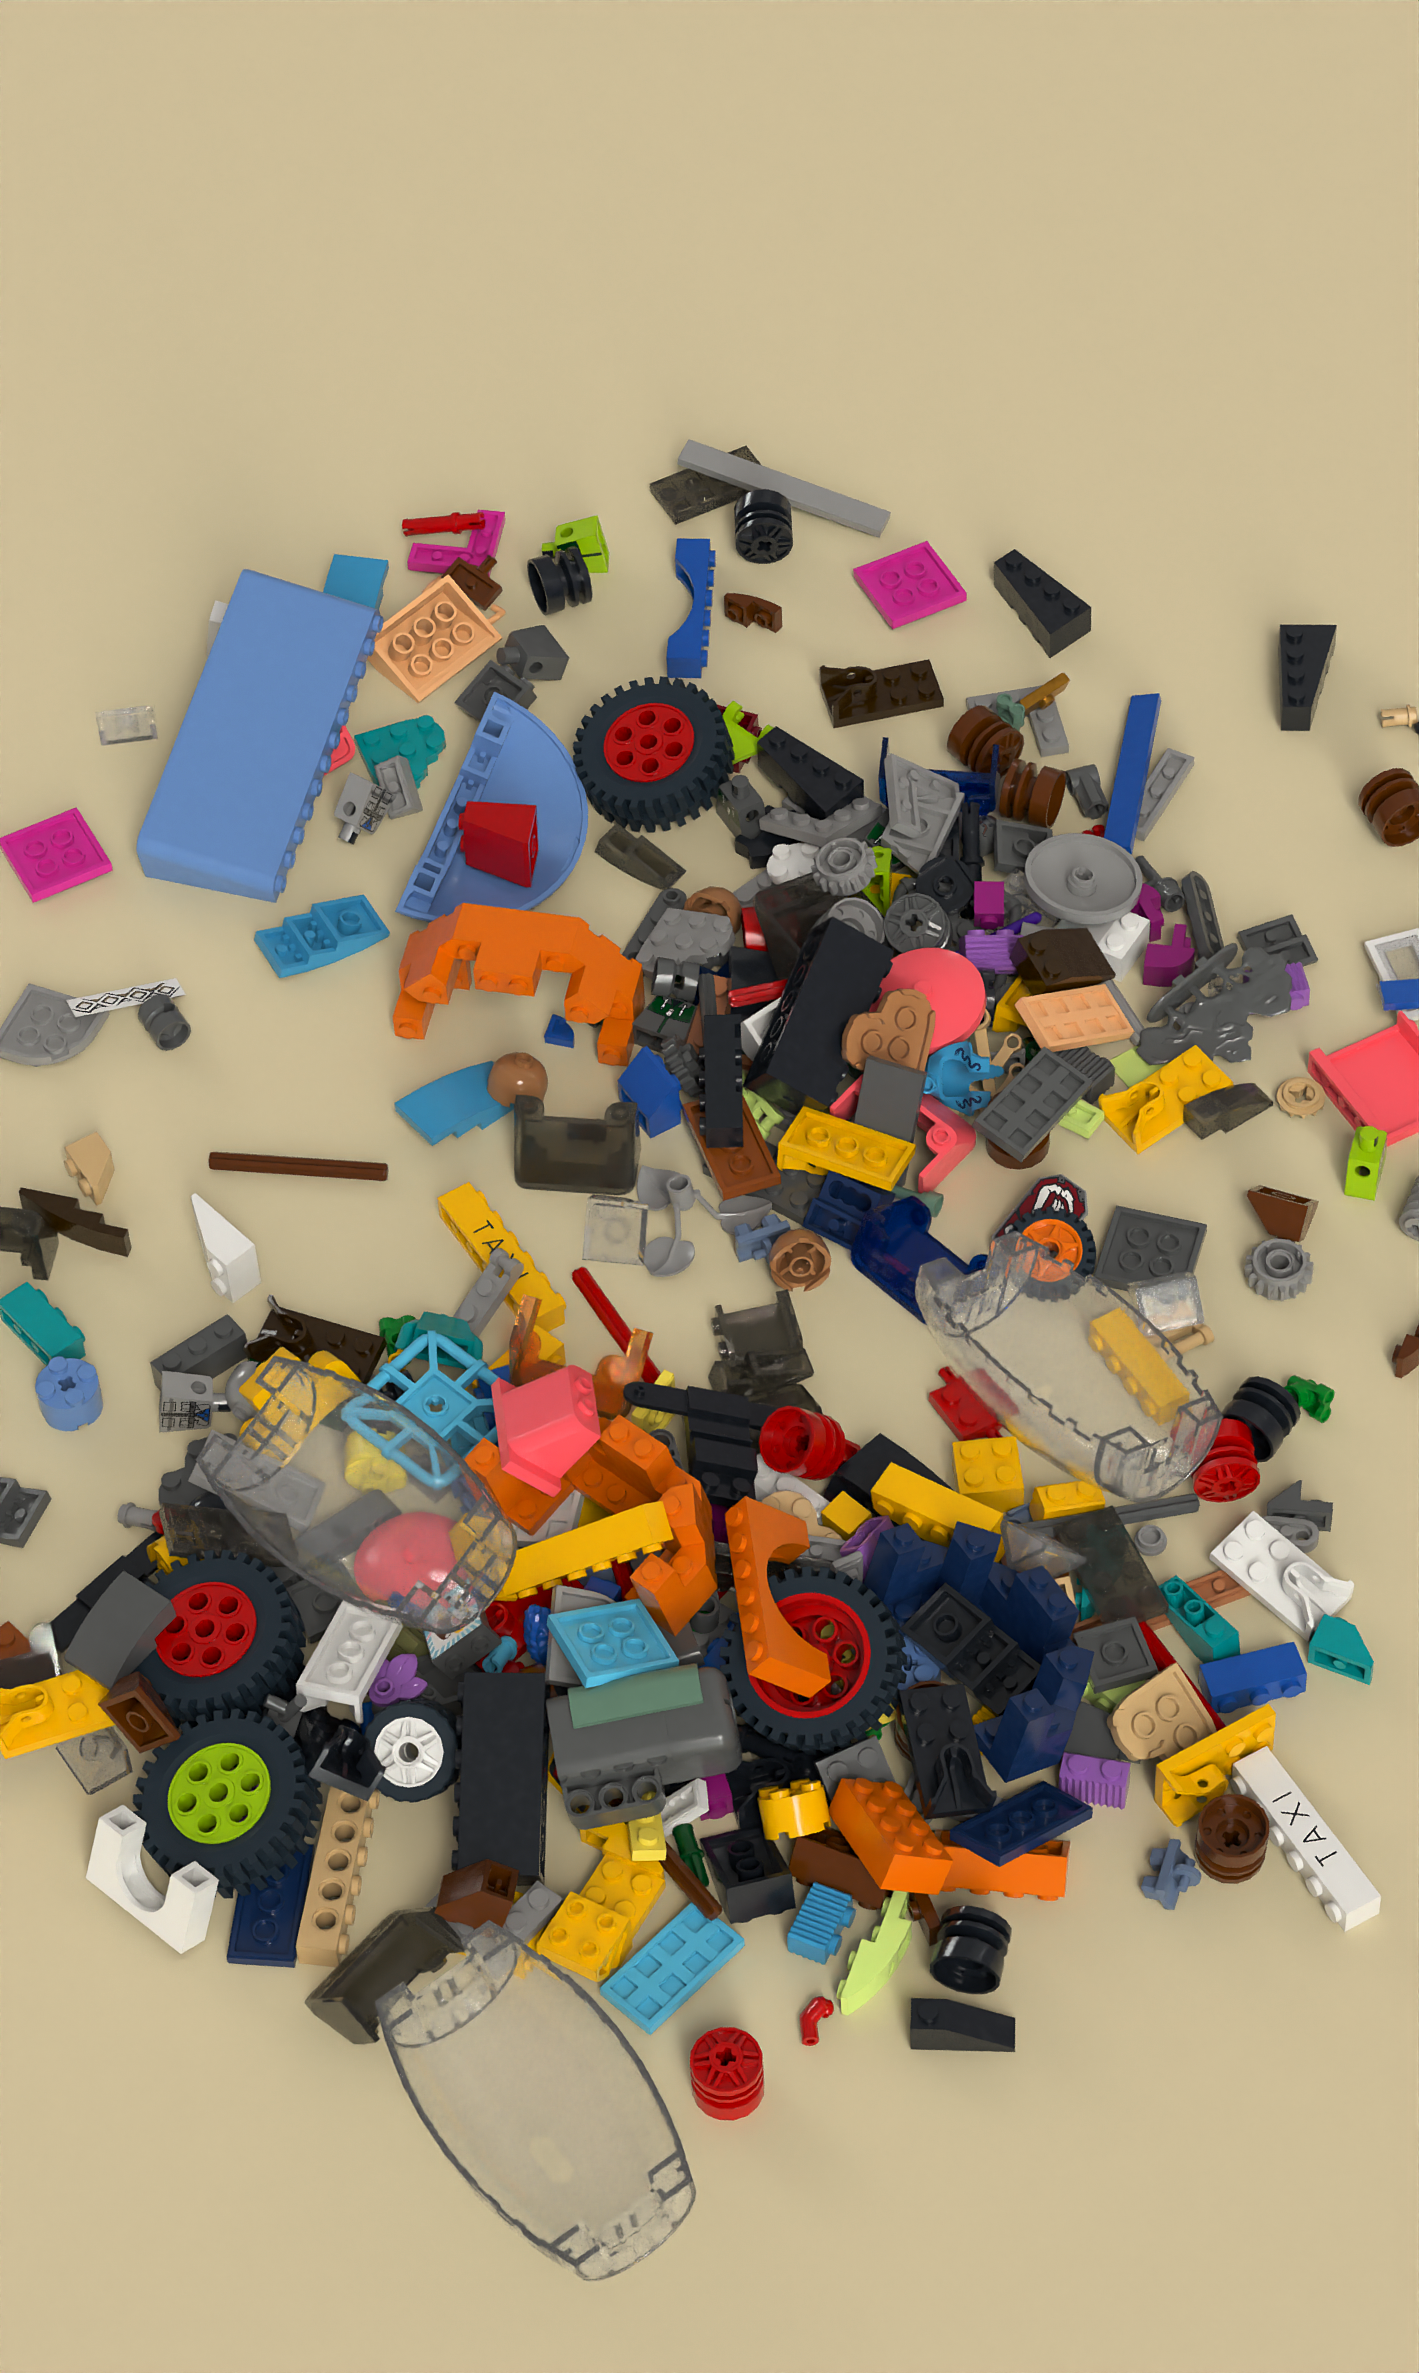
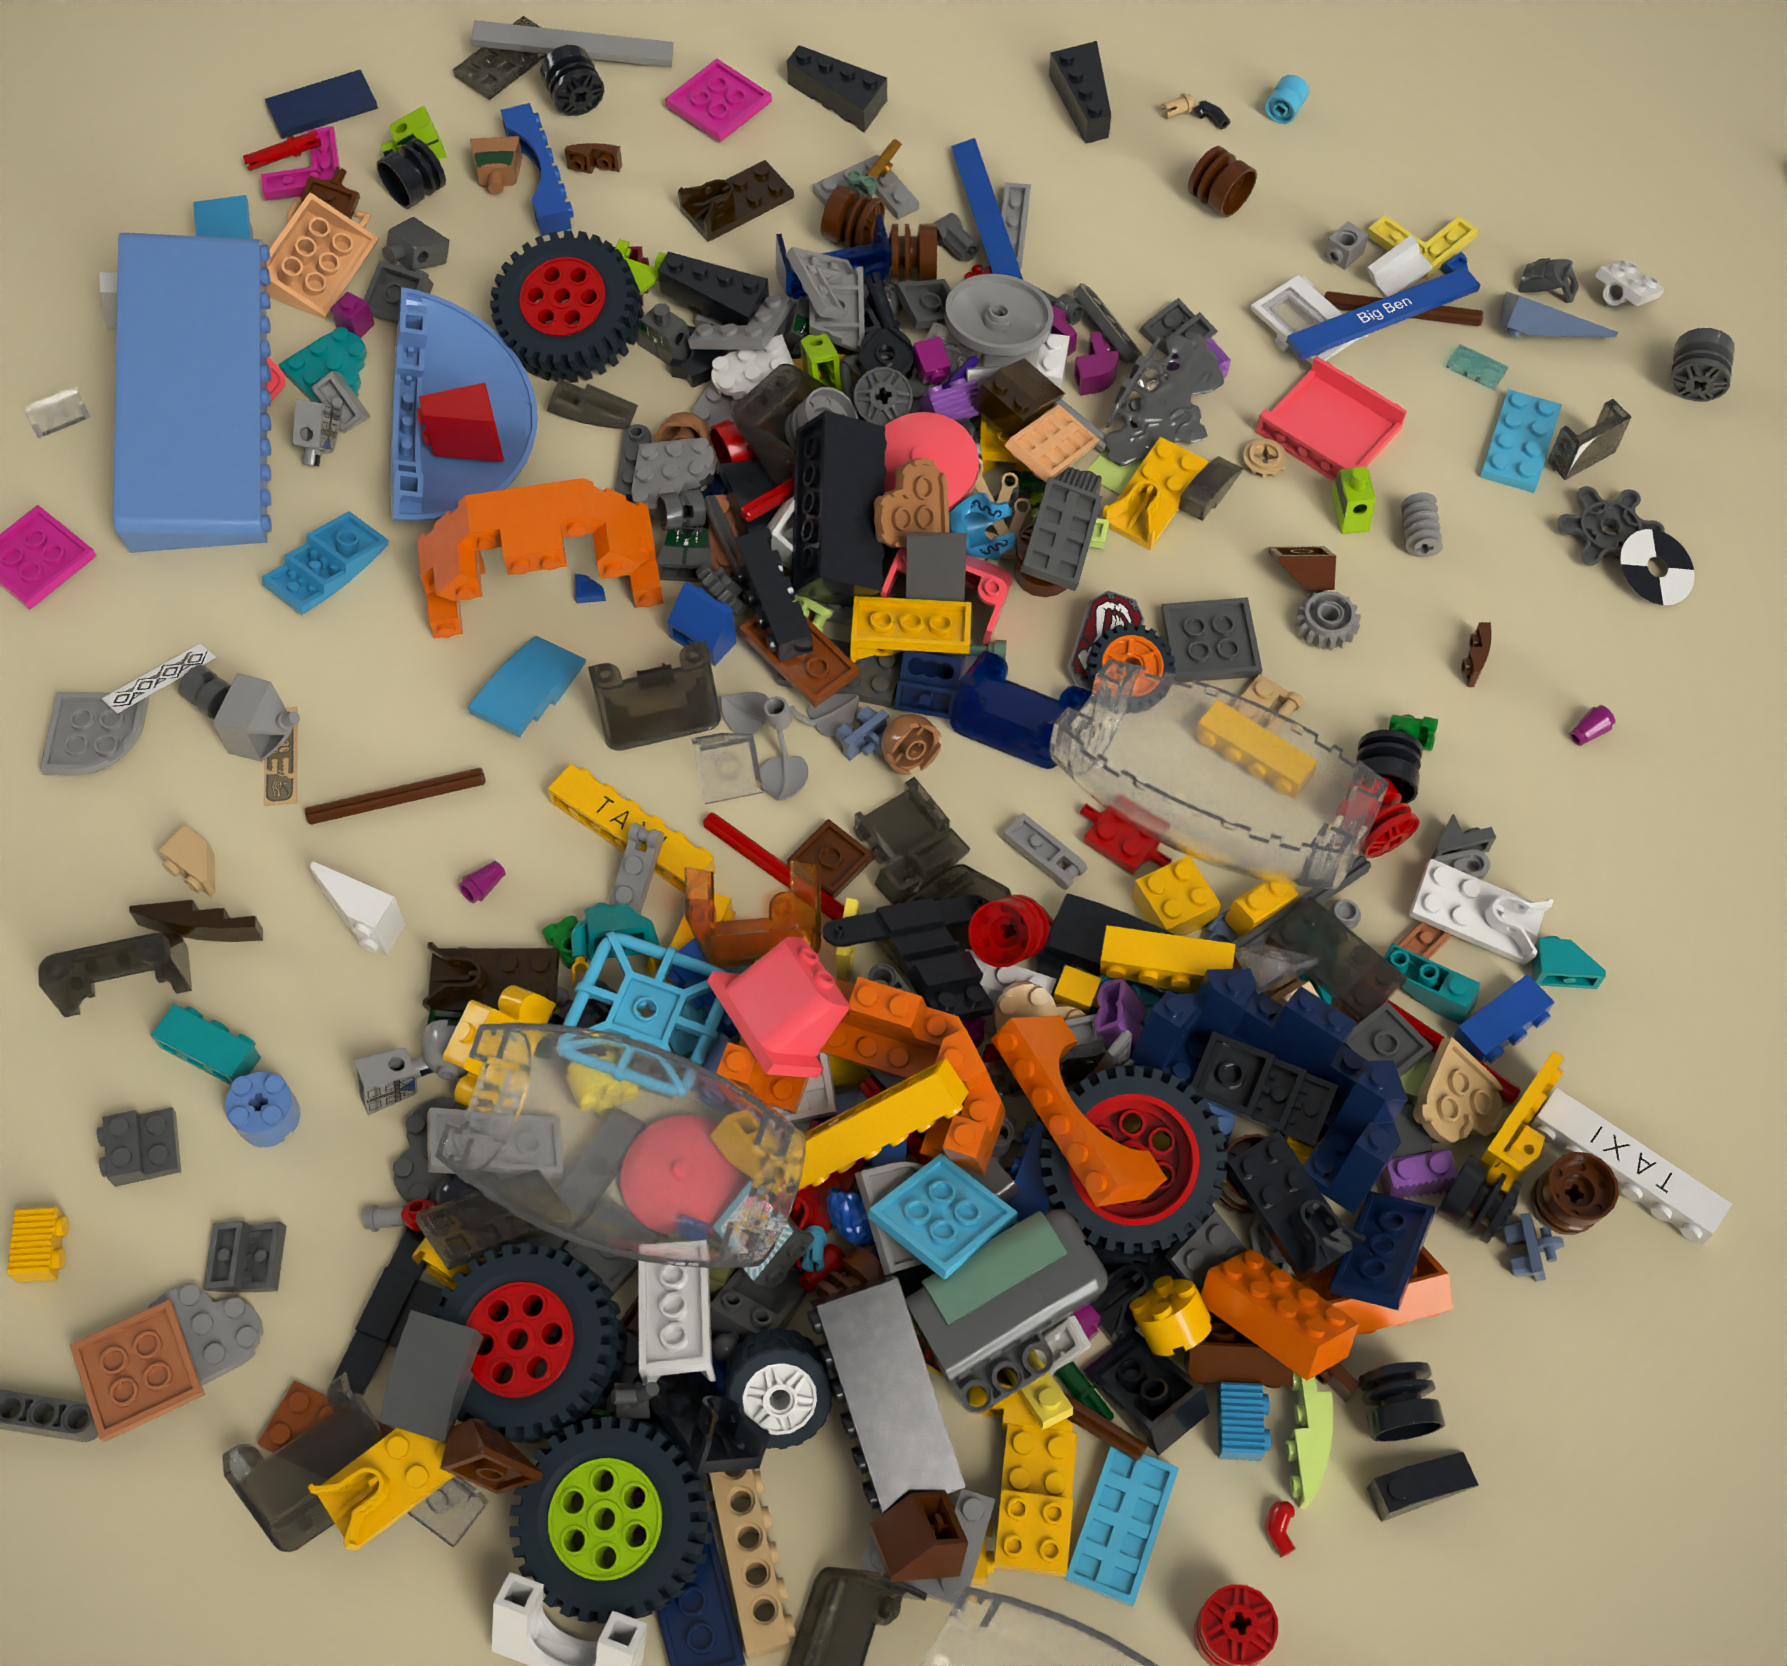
camera: 25 degrees left, 10 degrees up
(194, 1057) = (253, 719): none -> light grey piece
(204, 1353) = (381, 1022): dark grey brick -> none
(209, 1101) = (281, 771): none -> sticker
(343, 1264) = (480, 882): none -> magenta cone
(398, 1679) = (730, 1313): medium lavender plate -> none
(444, 706) = (353, 314): none -> magenta brick
(504, 485) = (321, 103): none -> dark blue tile
(516, 1075) = (572, 648): medium nougat cylinder -> none
(653, 590) = (497, 161): none -> medium nougat torso
(679, 1341) = (839, 855): none -> reddish brown plate
(844, 866) = (799, 361): light grey gear -> none
(885, 1395) = (1044, 850): none -> light grey plate
(1136, 1813) = (1479, 1199): none -> black wheel
(1168, 1300) = (1254, 676): clear slope -> none

